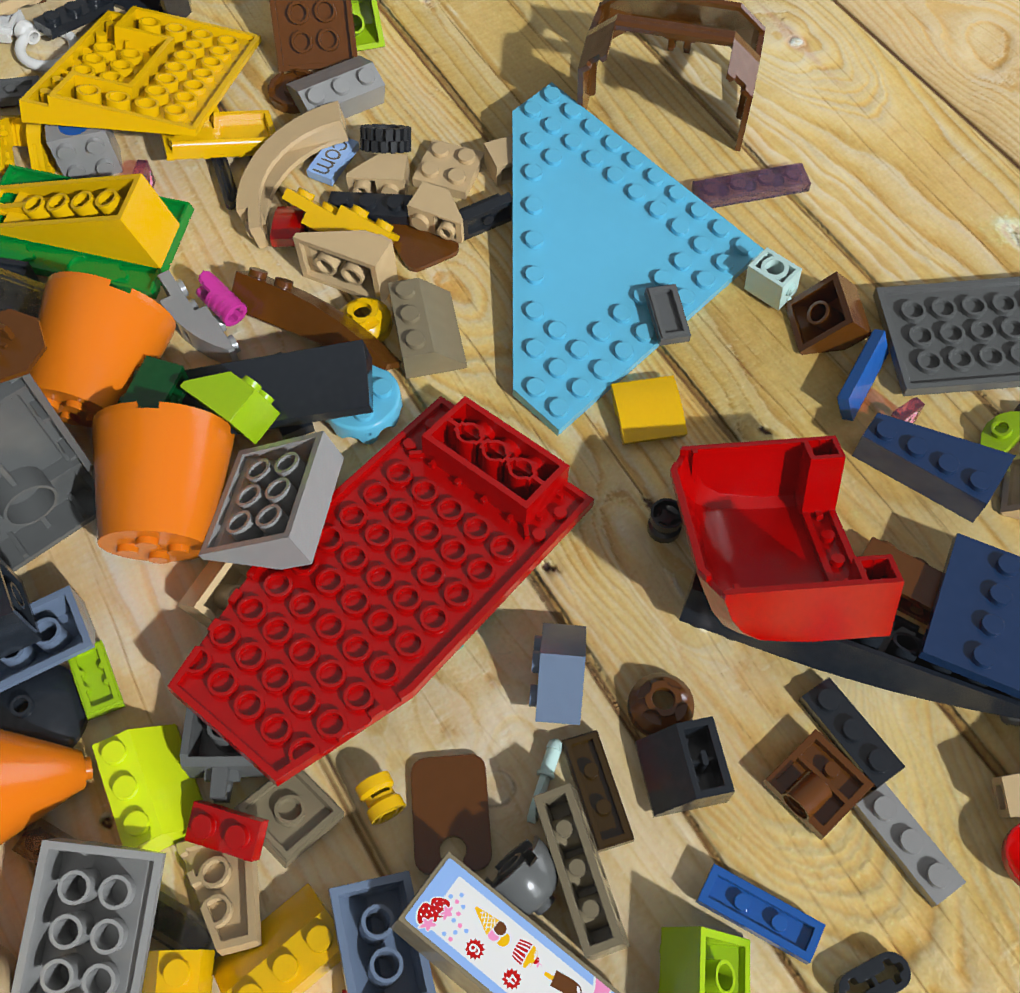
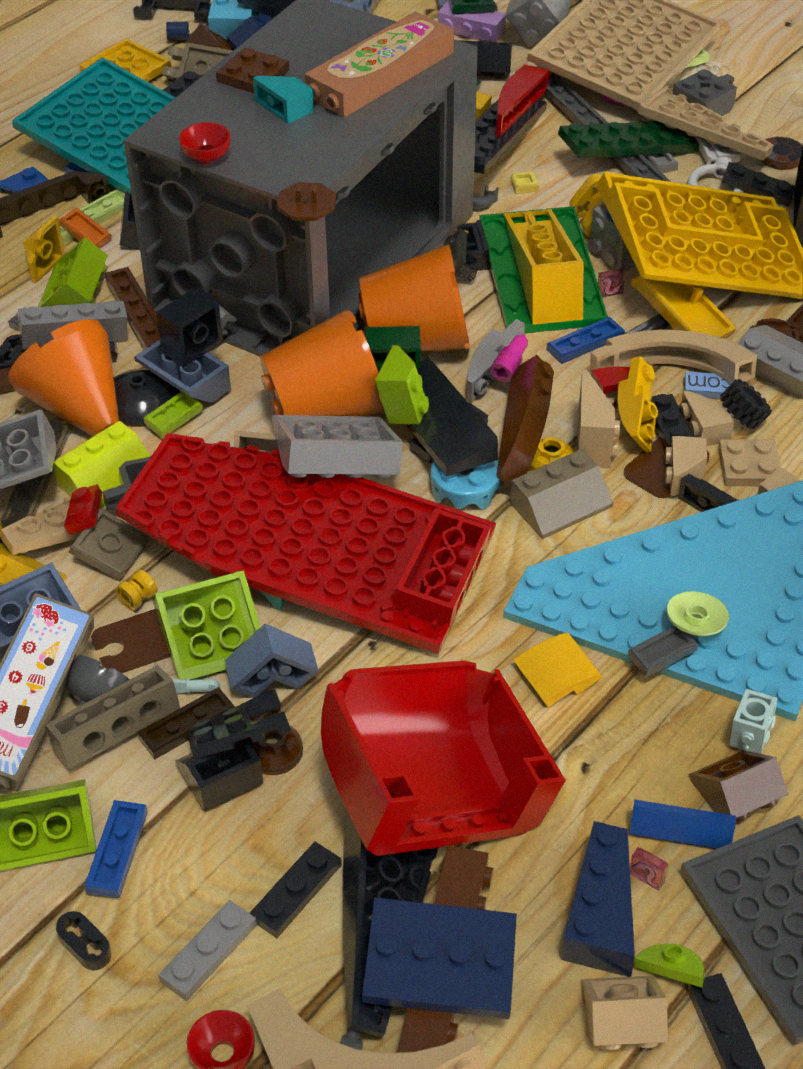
camera: 70 degrees right, 15 degrees down
(208, 234) = (584, 340): none -> blue tile
(476, 727) = (206, 623): none -> lime slope
(645, 268) = (697, 613): none -> yellowish green dish
(651, 747) = (235, 724): none -> black wing
(818, 784) = (237, 867): reddish brown plate -> none

